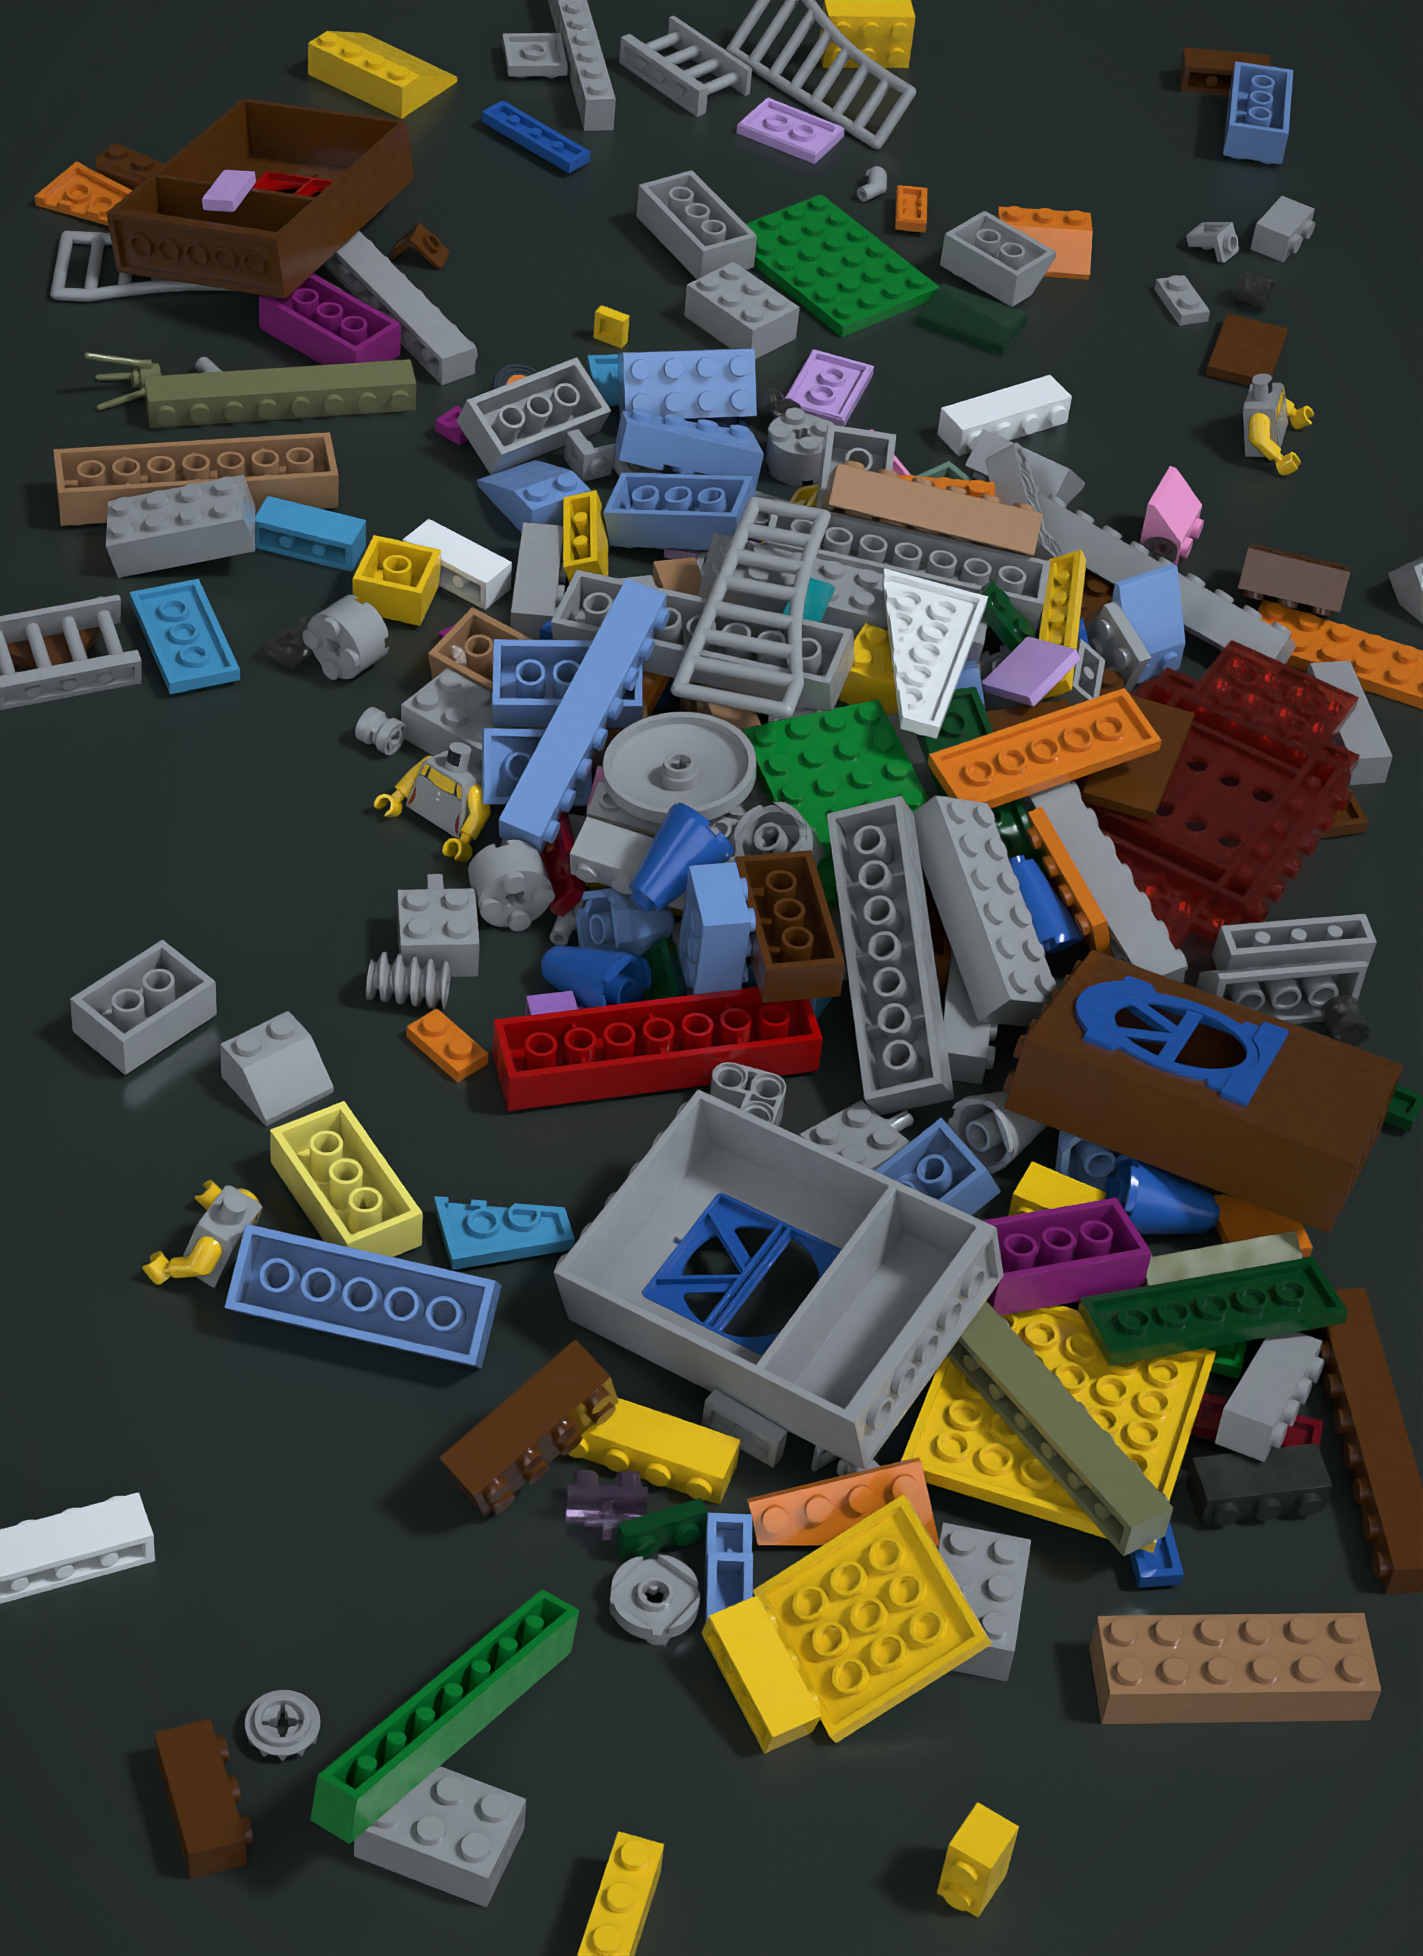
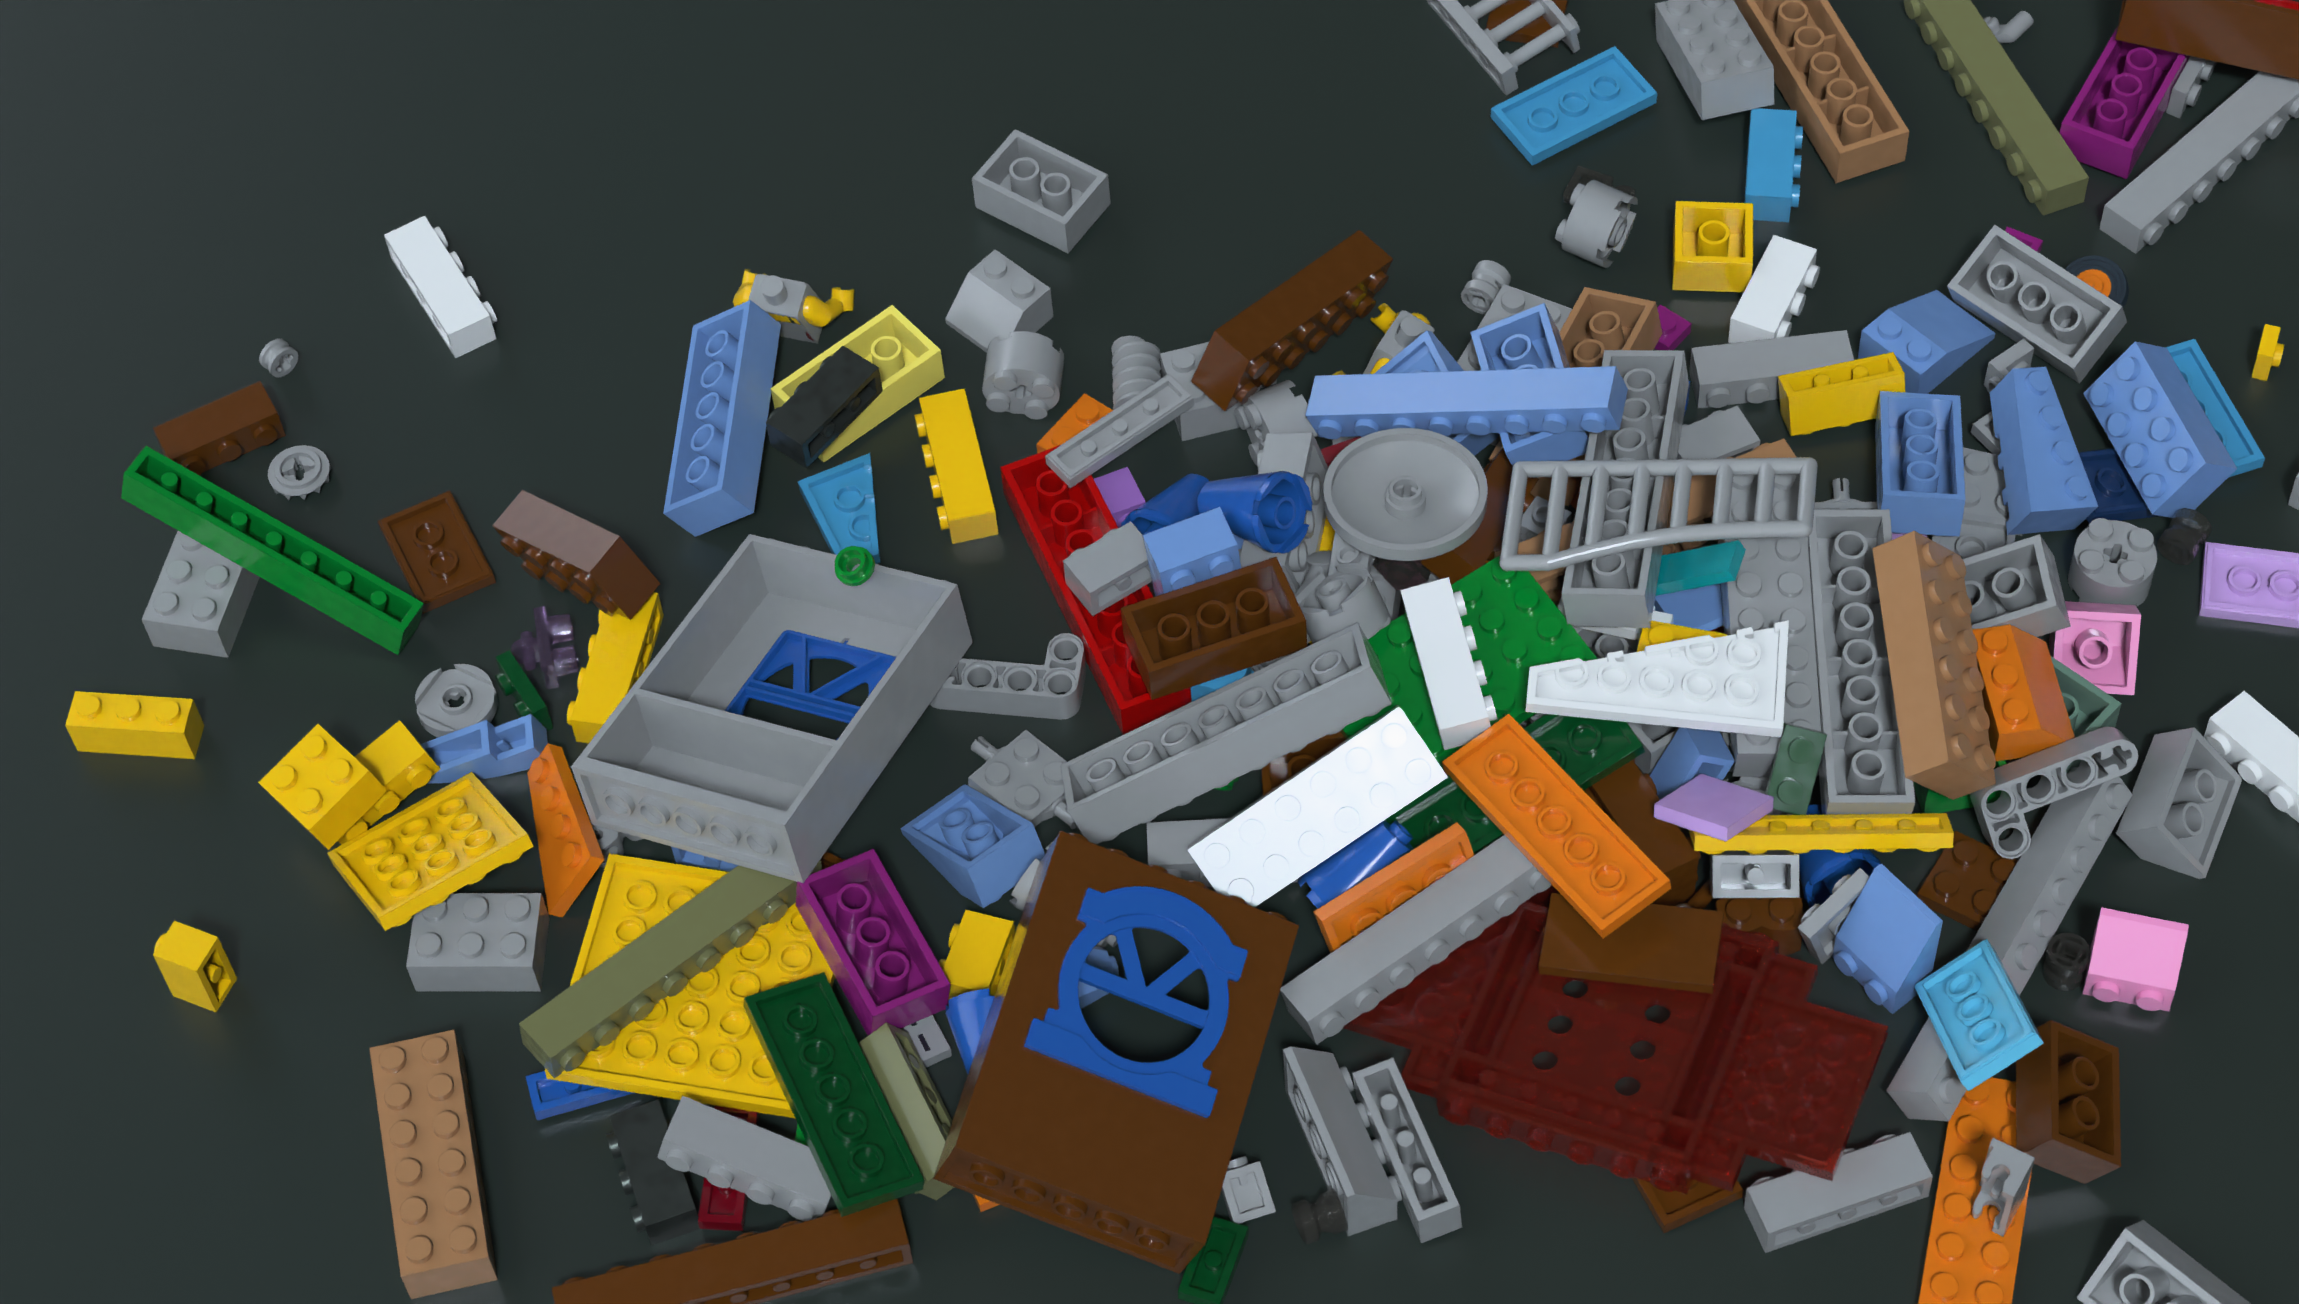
camera: 90 degrees right, 10 degrees up
(104, 1727) = (278, 357): none -> light grey bush
(386, 1054) = (1023, 374): none -> light grey brick
(403, 1190) = (824, 406): none -> pearl dark grey brick
(415, 832) = (1292, 321): none -> reddish brown brick
(434, 1601) = (436, 551): none -> reddish brown tile
(469, 1132) = (957, 465): none -> yellow brick
(498, 980) = (1119, 430): none -> light grey tile
(652, 1159) = (847, 559): none -> green plate
(672, 1005) = (1108, 568): none -> light grey brick
(786, 1693) = (323, 786): none -> yellow brick
(850, 780) = (1447, 663): none -> white brick
(1241, 584) = (1978, 1015): none -> medium azure tile
(1376, 616) = (2003, 1183): none -> light grey hinge

